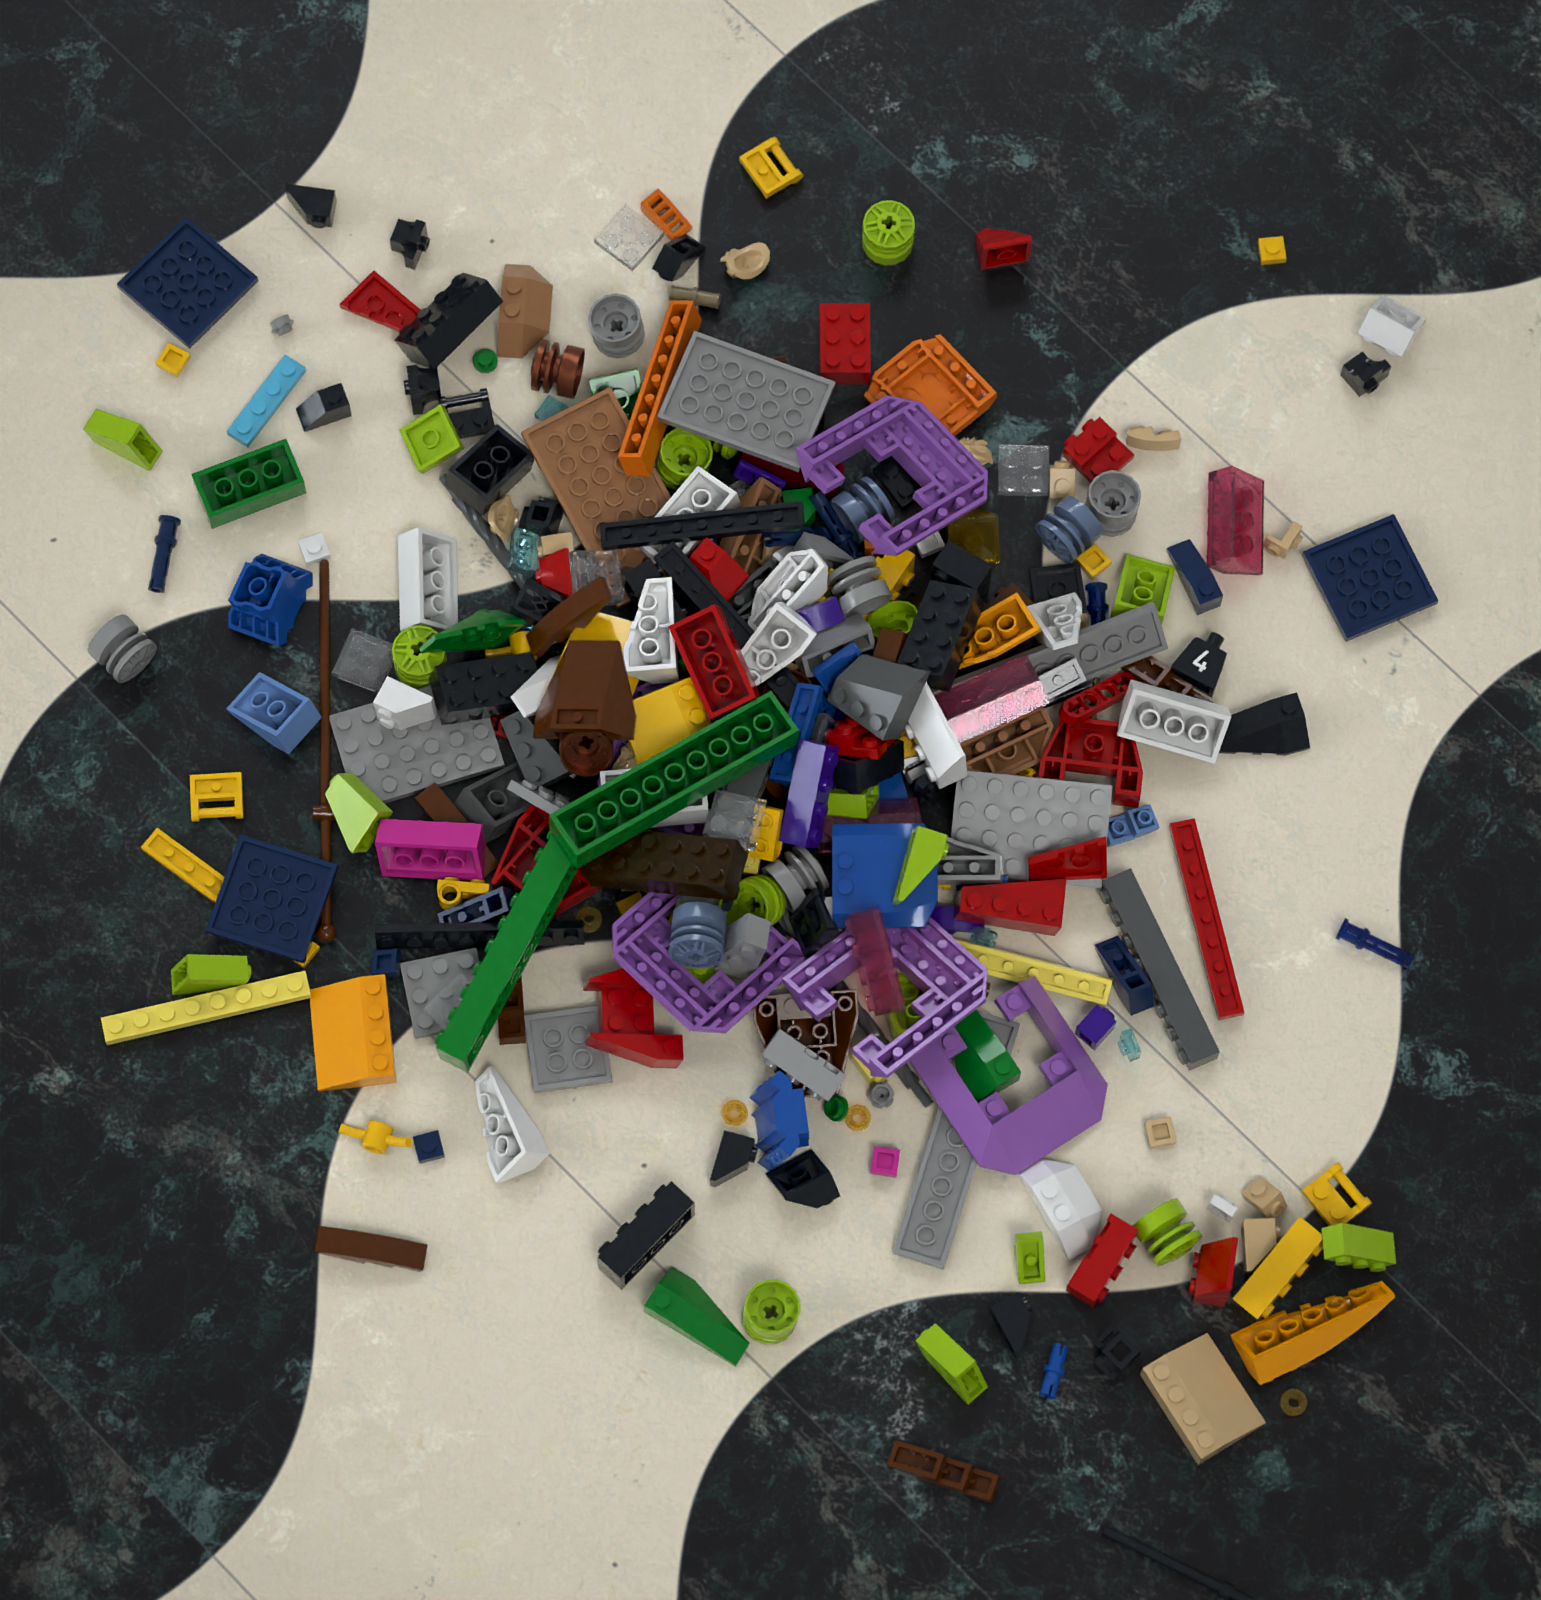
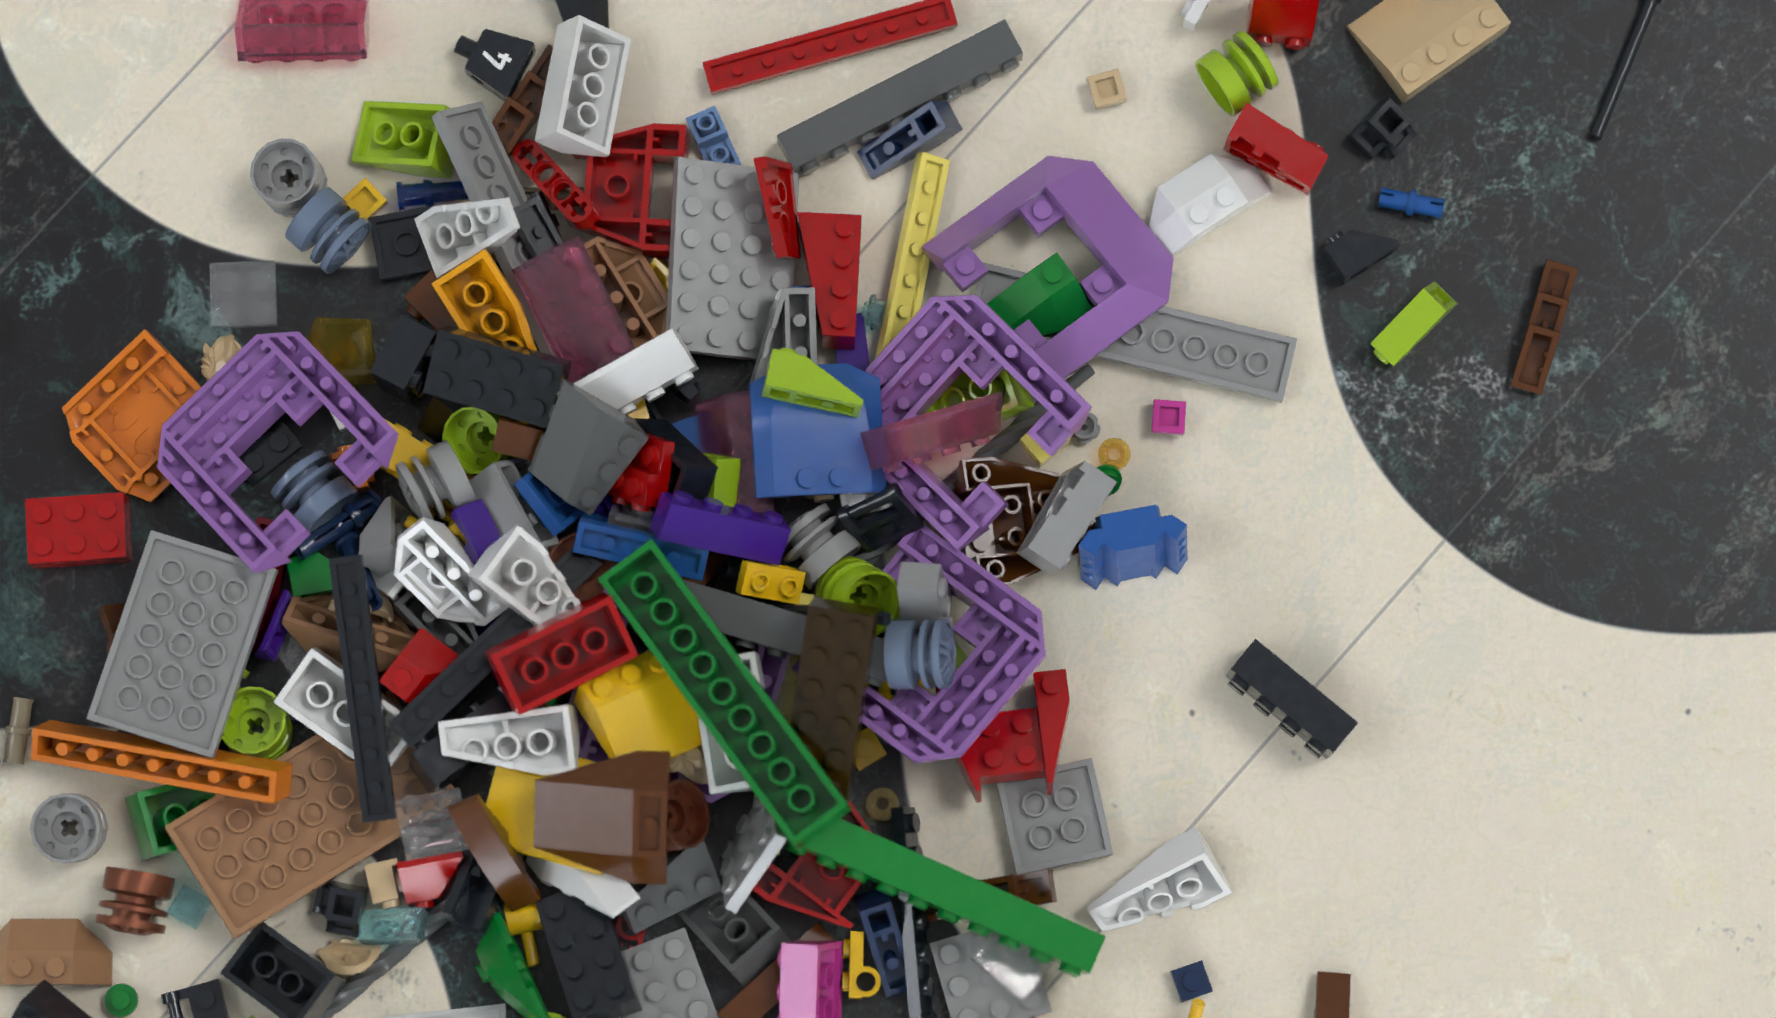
camera: 95 degrees left, 10 degrees up
(692, 1313) = (1376, 638): green wedge -> none
(732, 1157) = (1179, 602): black slope -> none
(734, 1105) = (1119, 594): clear yellow plate -> none
(735, 818) = (768, 616): clear plate -> none
(766, 1297) = (1373, 522): lime wheel -> none
(804, 1181) = (1207, 509): black slope -> none
(914, 774) = (667, 404): white plate -> none
(1030, 1257) = (1276, 236): lime slope -> none
(1061, 480) = (254, 244): tan bracket -> none
(1096, 450) = (214, 203): red plate -> none
(1096, 1026) = (979, 170): dark purple brick -> none
(1128, 1045) = (999, 130): clear light blue plate -> none
(1144, 438) = (192, 140): tan slope -> none
(1195, 577) = (377, 74): dark blue slope -> none

